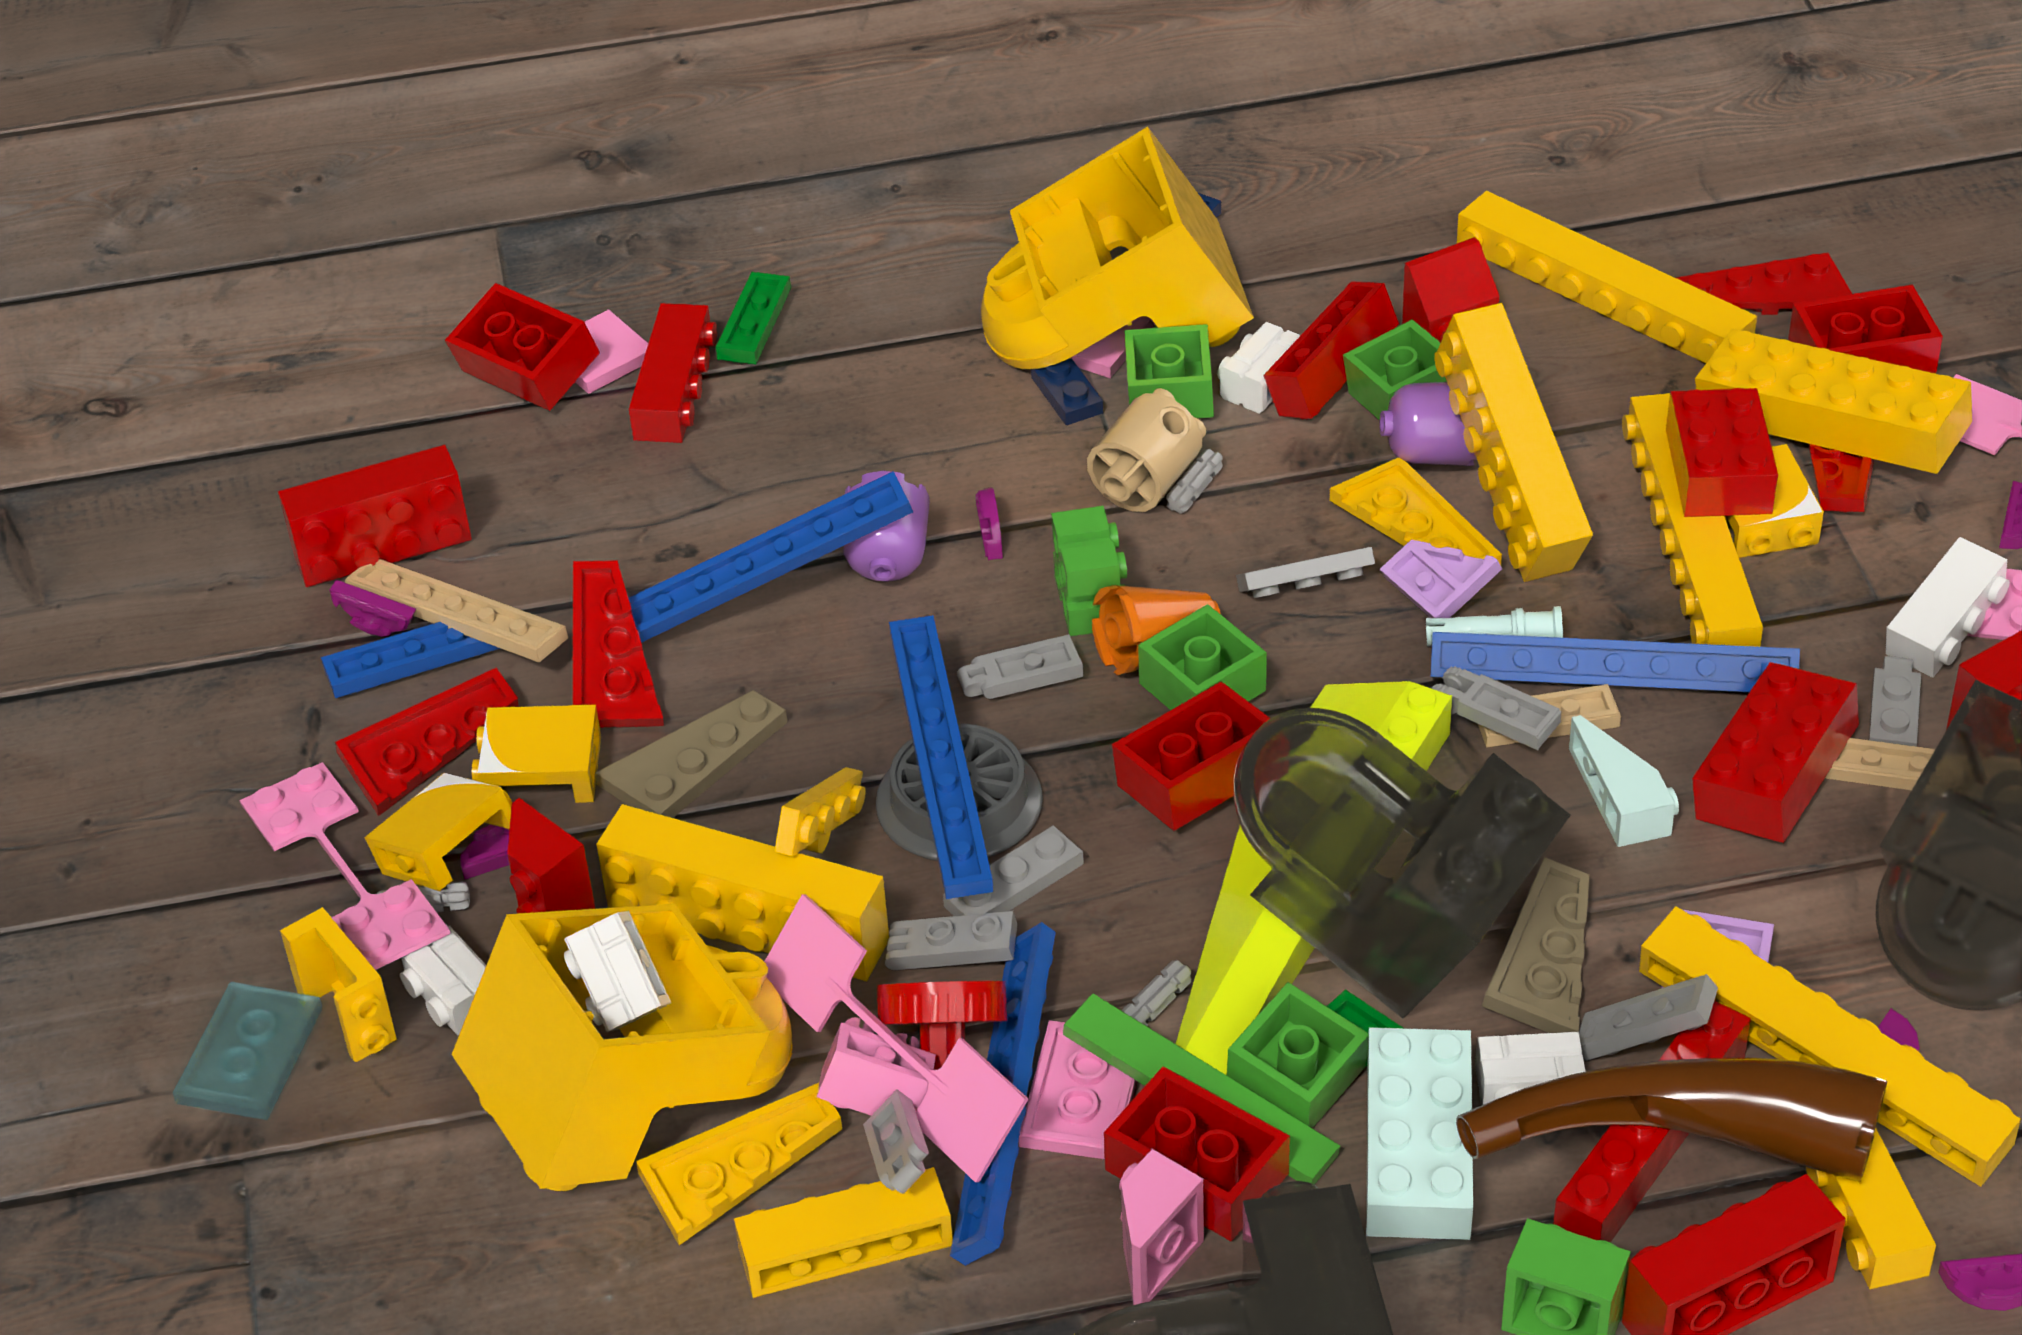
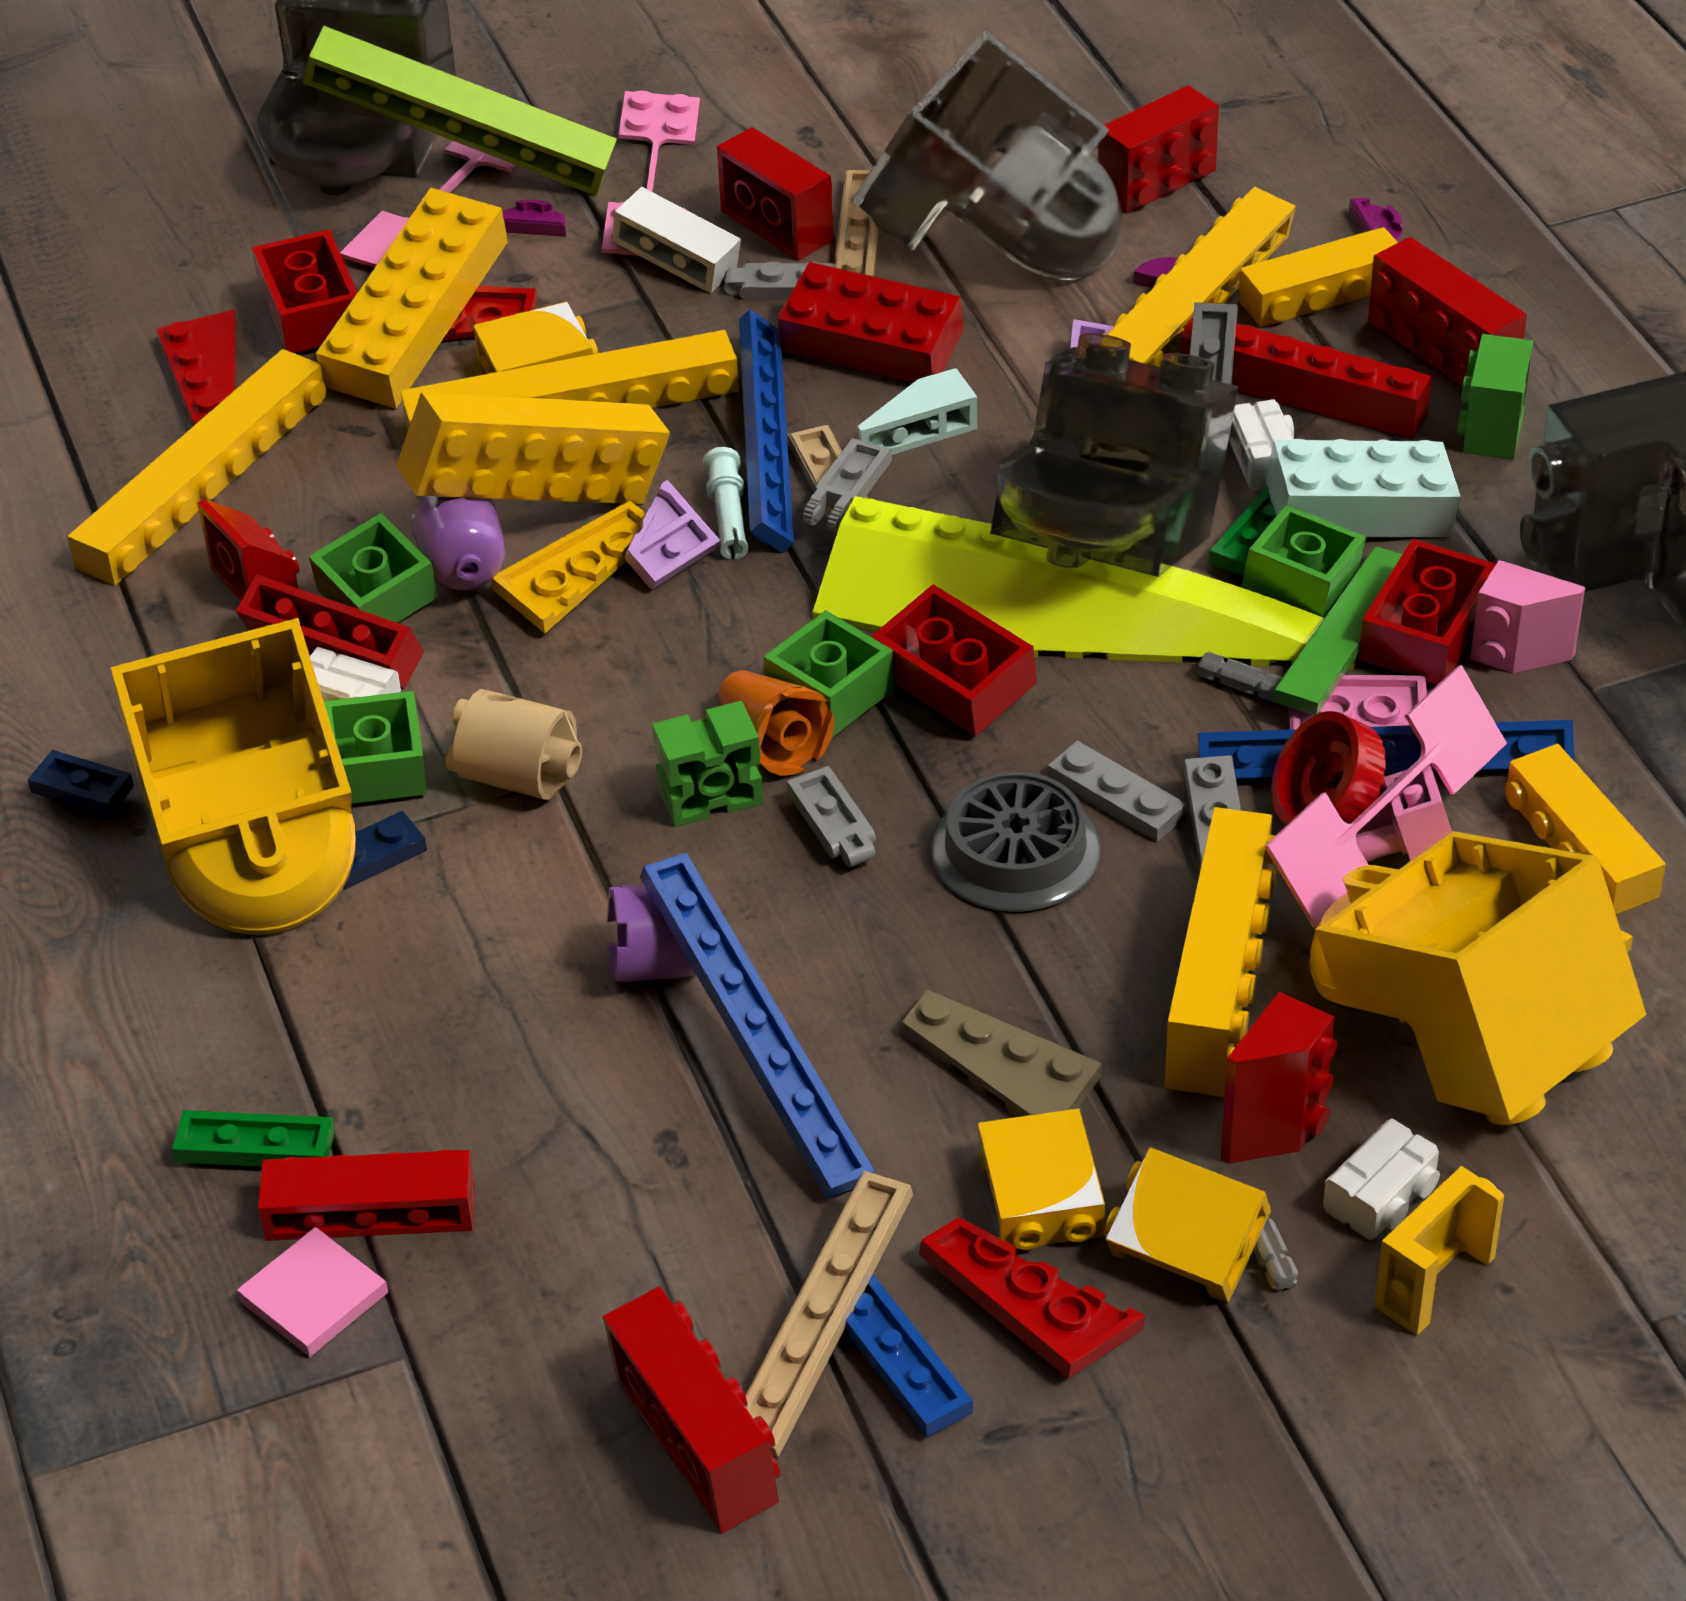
camera: 100 degrees left, 0 degrees up
(248, 1050) = (1515, 1350): clear light blue tile -> none
(371, 611) = (837, 1398): magenta tile -> none
(380, 924) = (1165, 1396): bright pink hinge -> none
(522, 346) = (348, 1332): red brick -> none
(609, 651) = (898, 1139): red wing -> none
(615, 971) = (1460, 901): white brick -> none
(815, 813) = (1119, 887): yellow hinge -> none
(896, 1142) = (1504, 777): light grey hinge -> none
(940, 758) = (1007, 819): blue plate -> none
(989, 523) = (599, 871): magenta tile -> none
(1306, 572) = (663, 630): plate -> none
(1721, 452) = (514, 342): red brick -> none
(1769, 1106) = (1314, 275): reddish brown brick -> none

